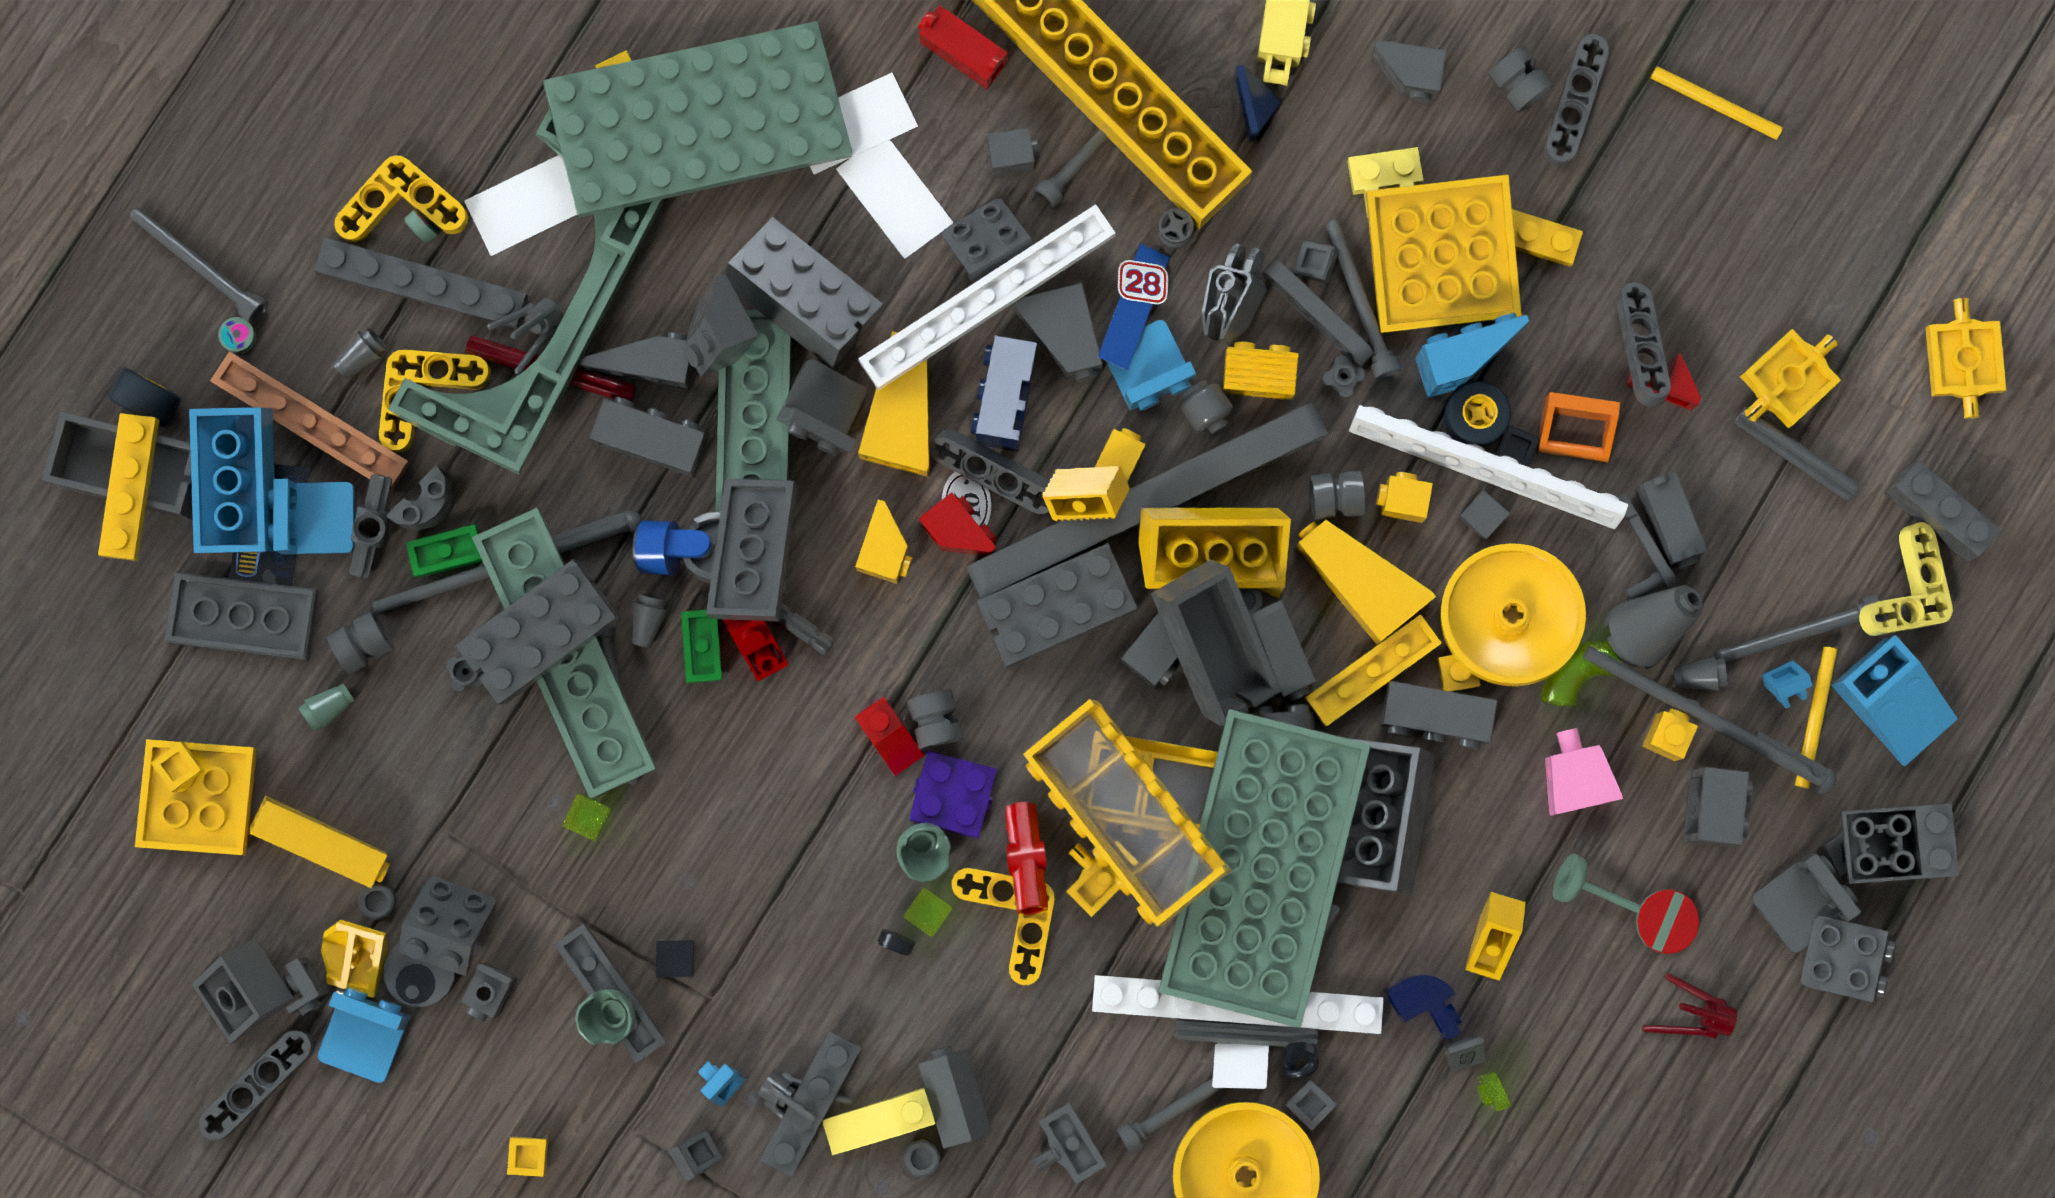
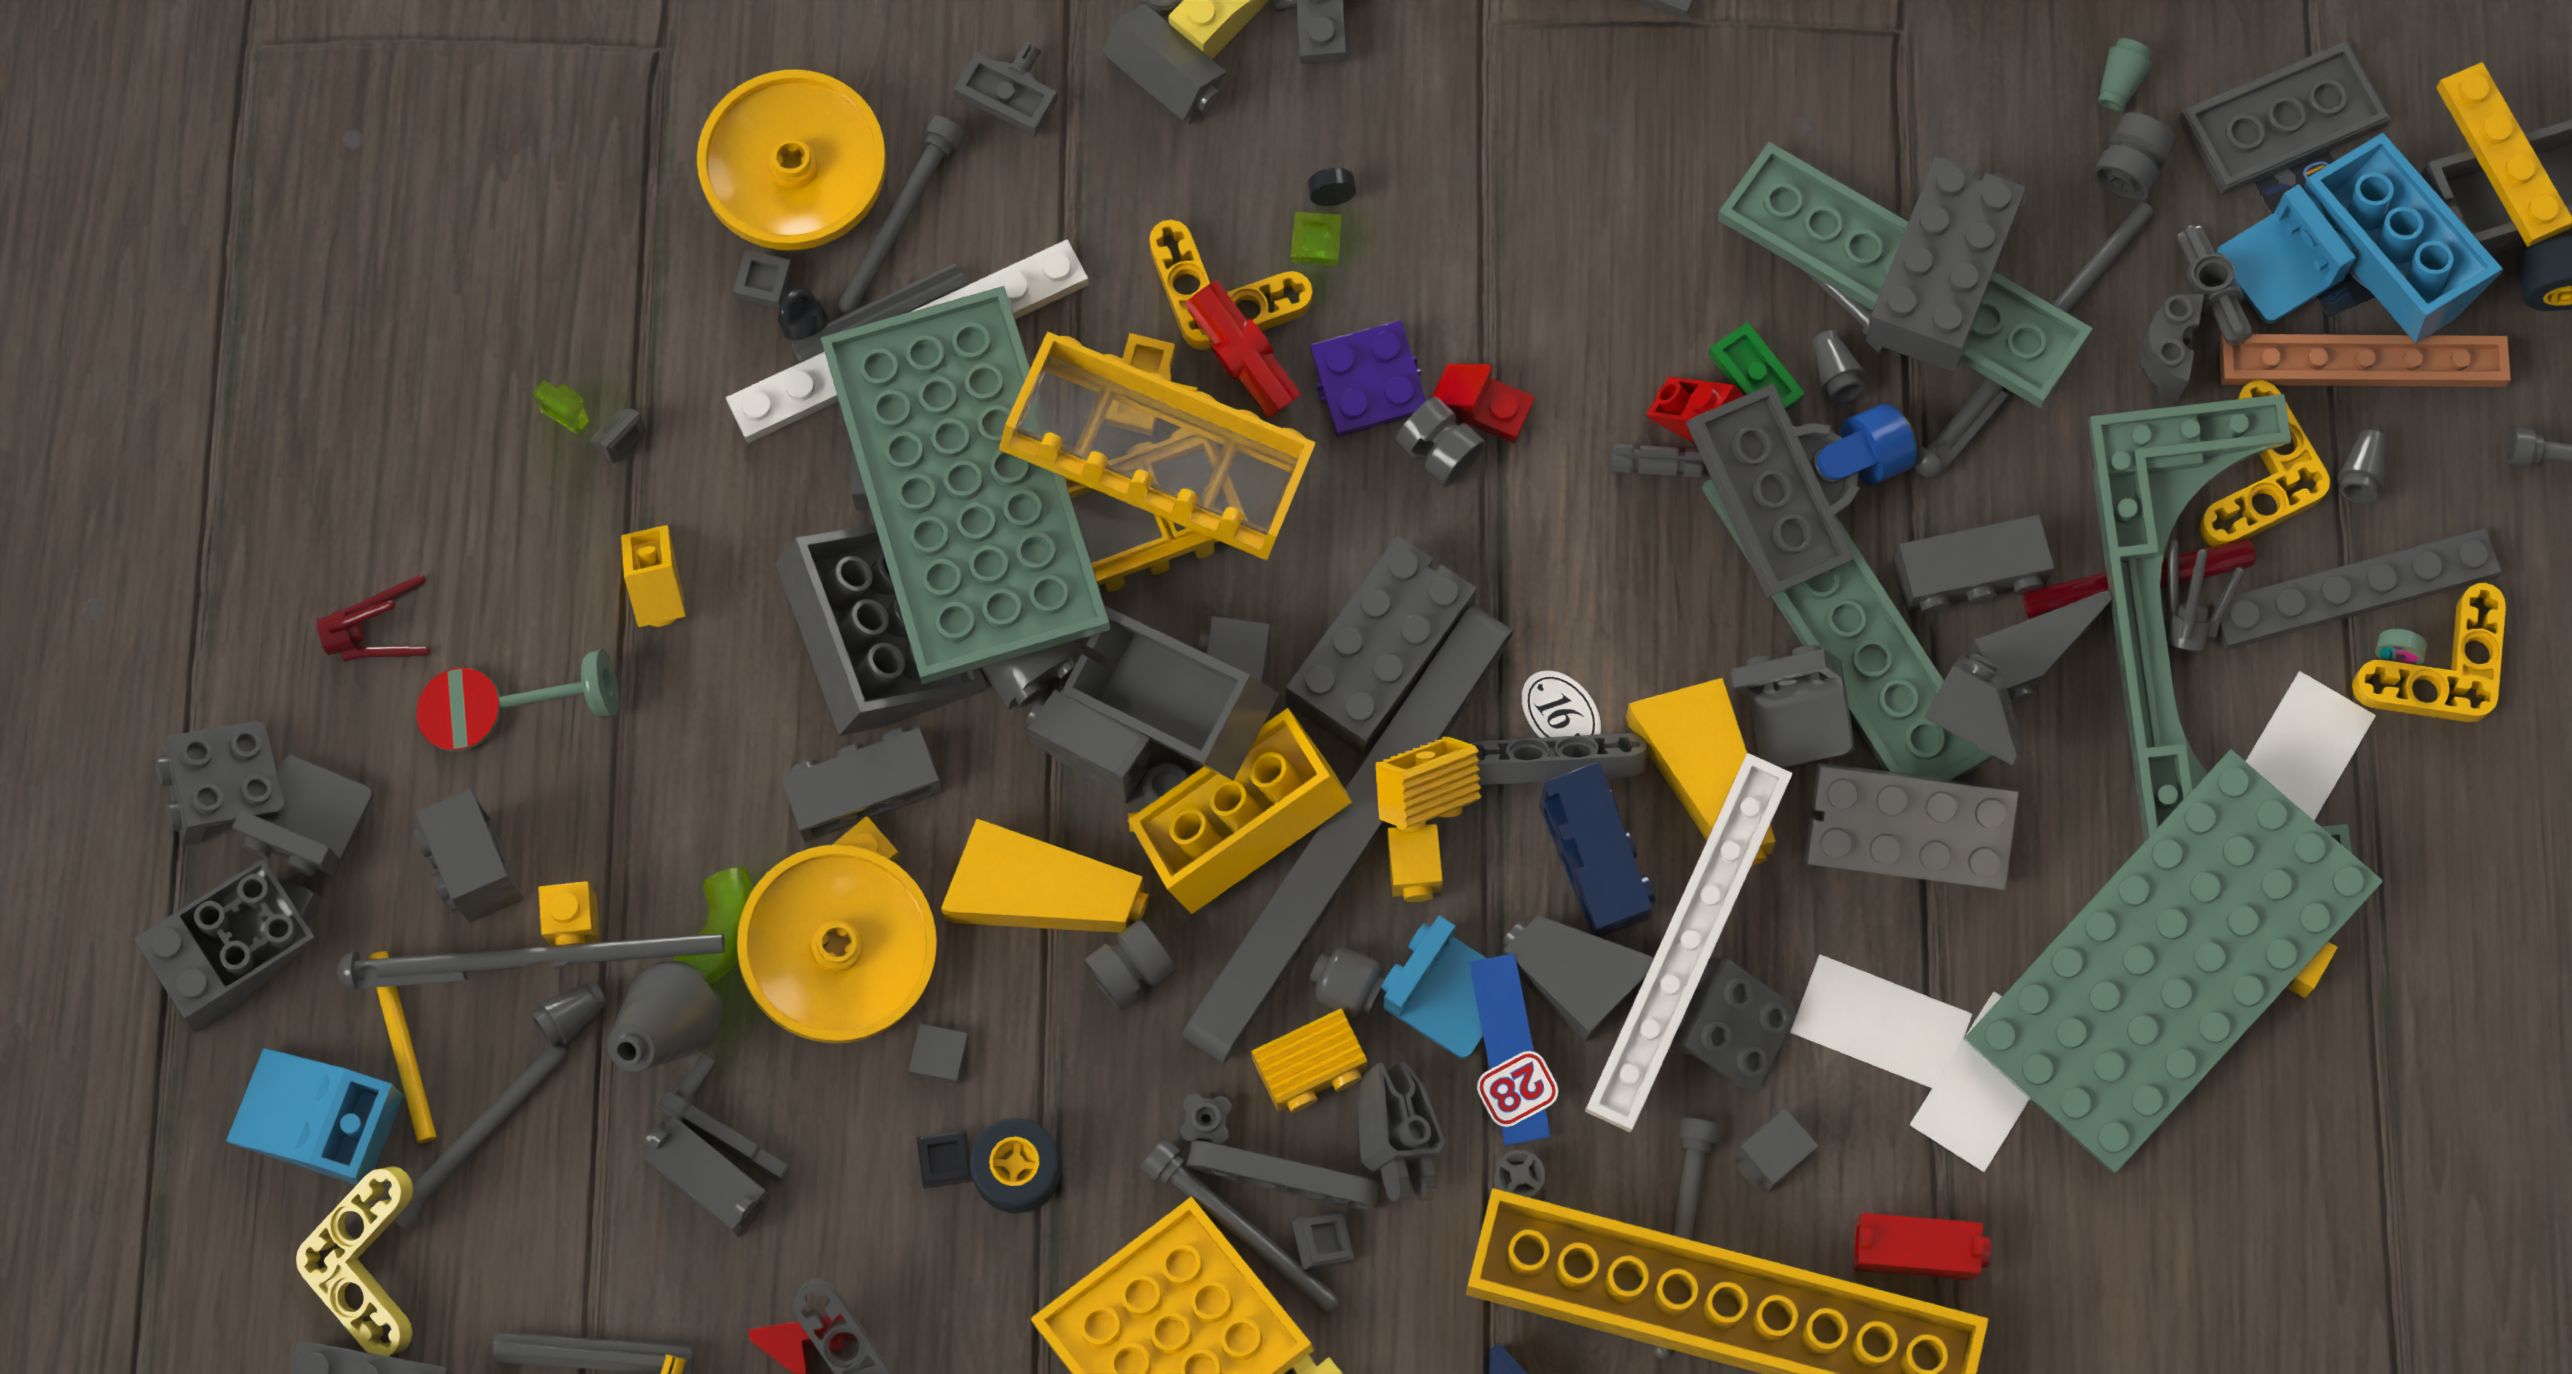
camera: 150 degrees right, 10 degrees down
(237, 335) = (2515, 407): tile -> none
(443, 551) = (2117, 307): green plate -> none
(586, 817) = (1759, 122): clear neon green plate -> none
(675, 958) = (1563, 38): black tile -> none
(884, 548) = (1622, 599): yellow slope -> none
(923, 852) = (1361, 292): sand green hair -> none
(955, 530) = (1551, 666): red slope -> none
(1240, 1066) = (864, 273): white sticker -> none
(1372, 670) = (966, 789): yellow plate -> none
(1404, 497) = (1046, 1012): yellow brick -> none
(1422, 993) = (701, 465): clear blue brick -> none
(1455, 360) = (1075, 1210): dark azure slope -> none
(1490, 468) = (945, 1114): white plate -> none
(1578, 776) = (652, 807): bright pink torso -> none
(1583, 408) = (893, 1248): orange tile -> none
(1787, 681) = (460, 1063): dark azure tile -> none

